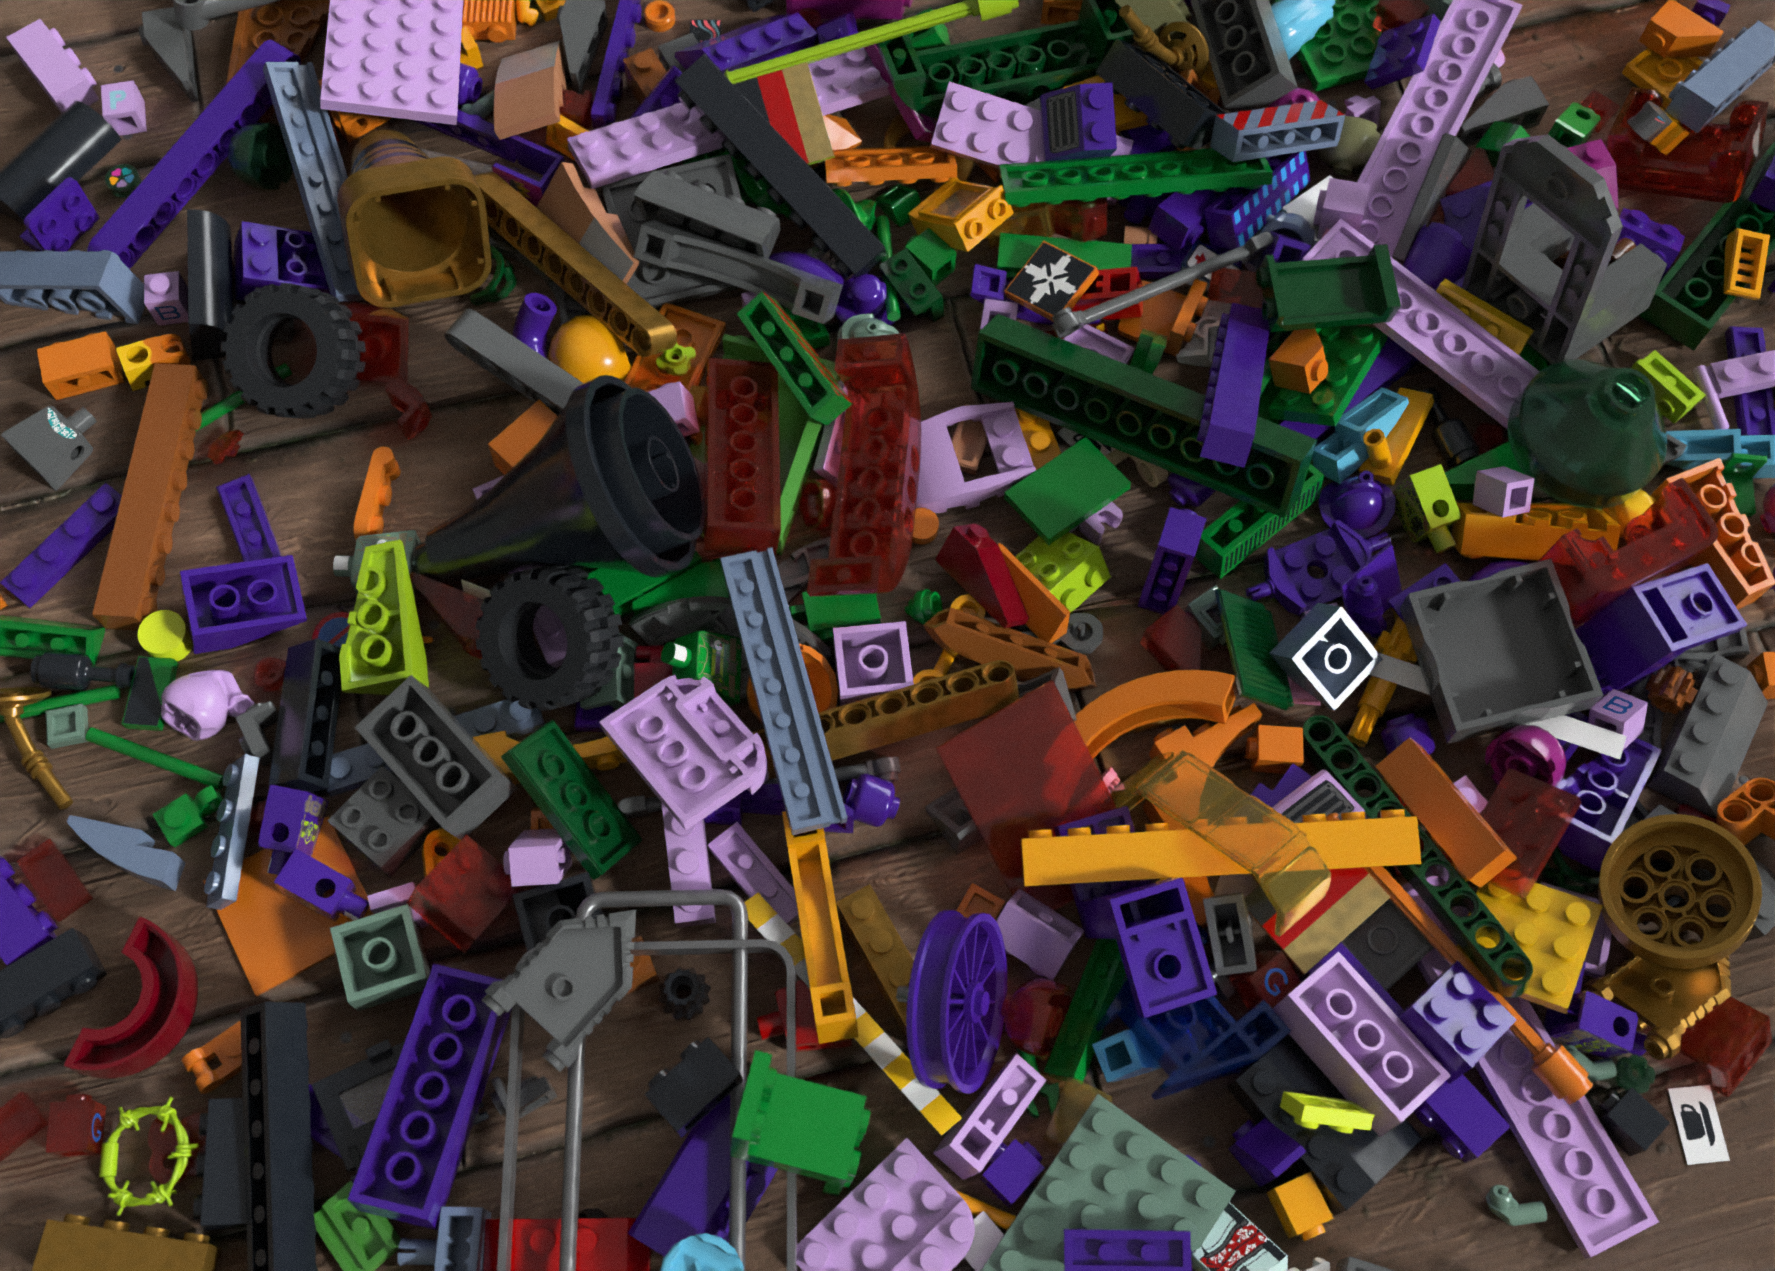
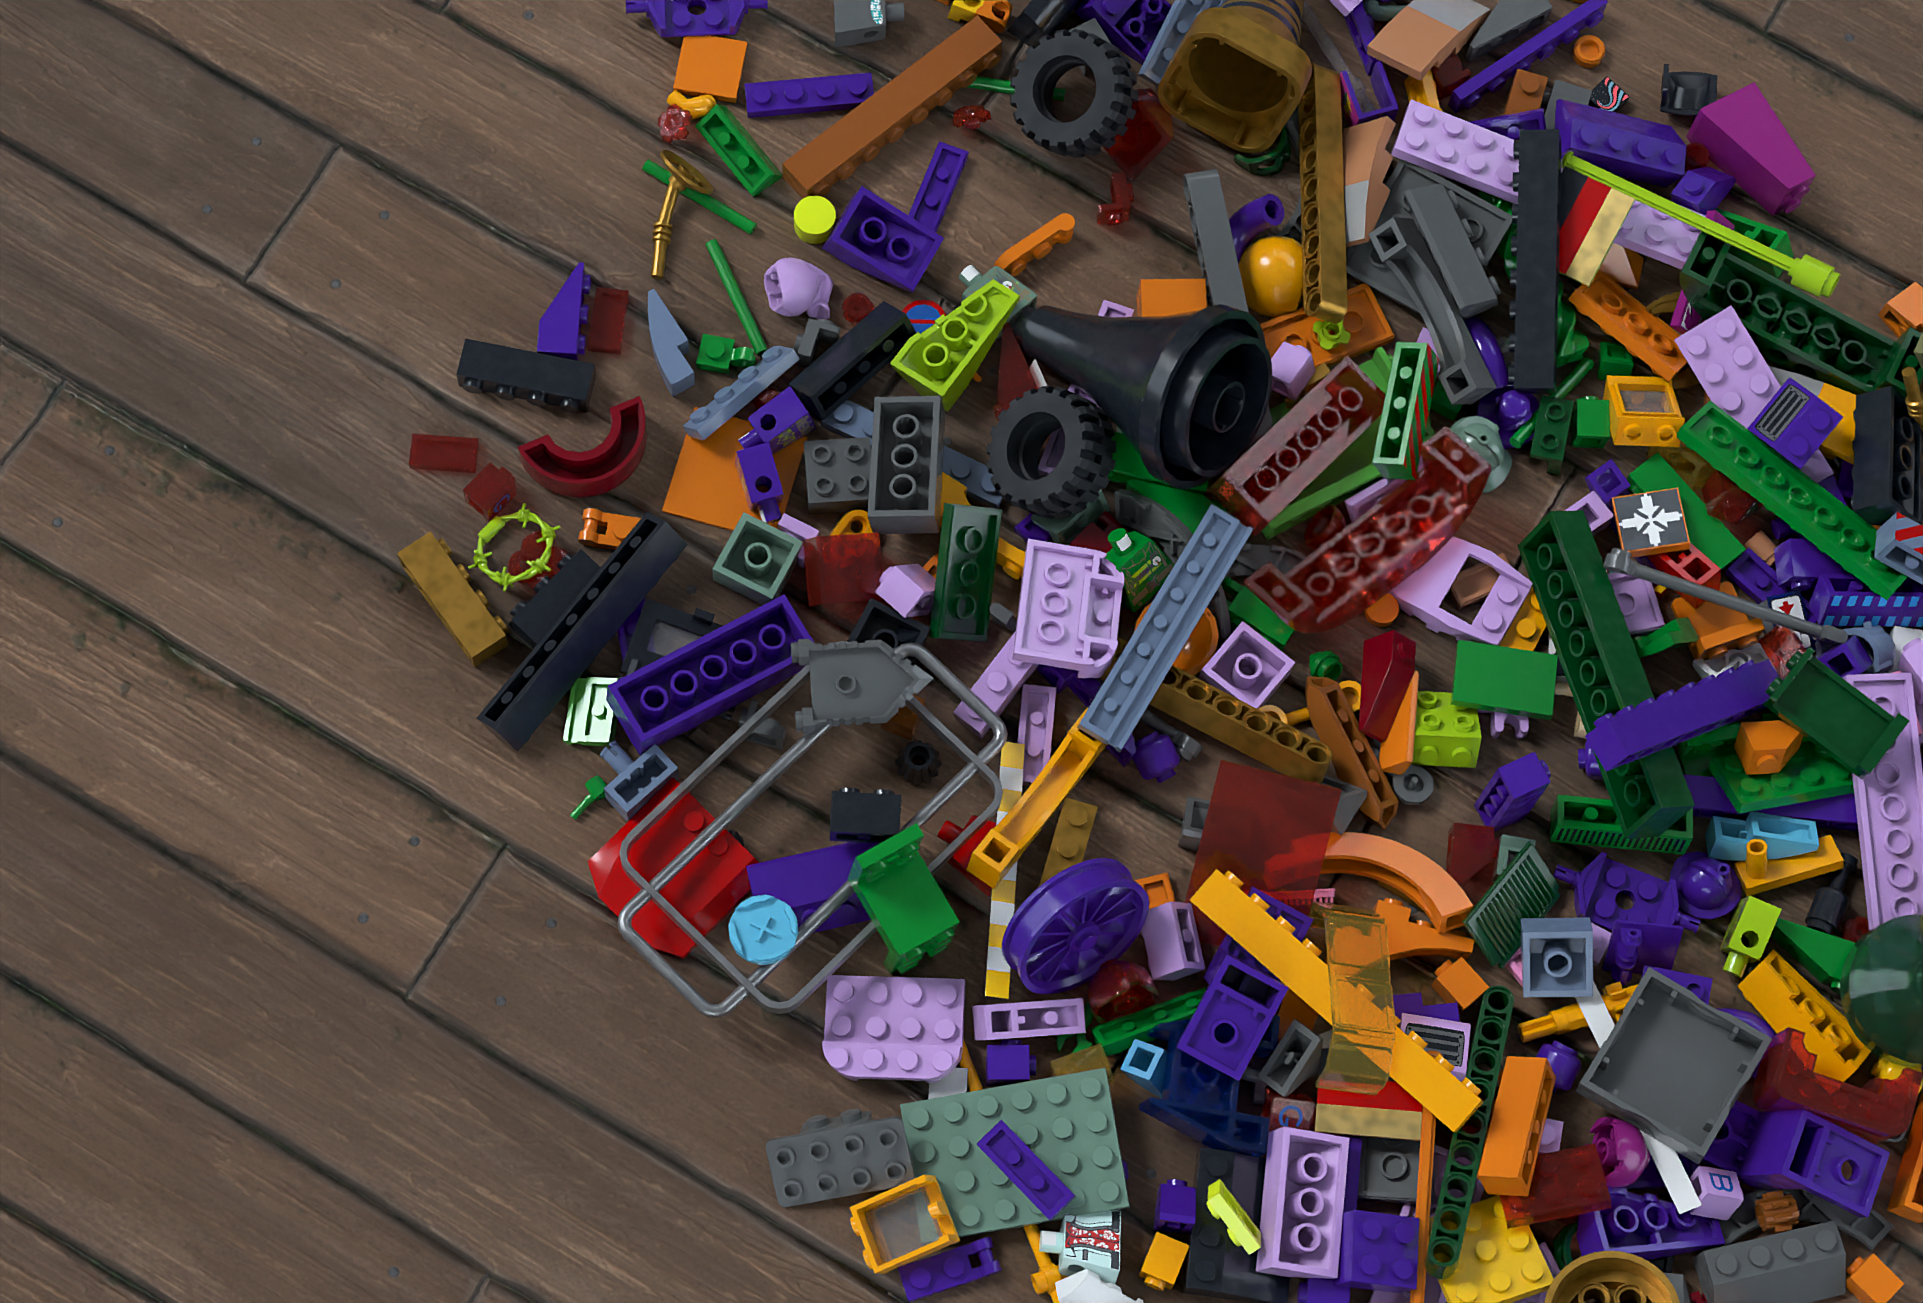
camera: 40 degrees right, 5 degrees up
(66, 726) = (701, 223): sand green tile -> none
(76, 672) = (731, 186): black piece -> none
(144, 700) = (775, 244): black tile -> none
(1503, 491) = (1807, 970): lavender brick -> none

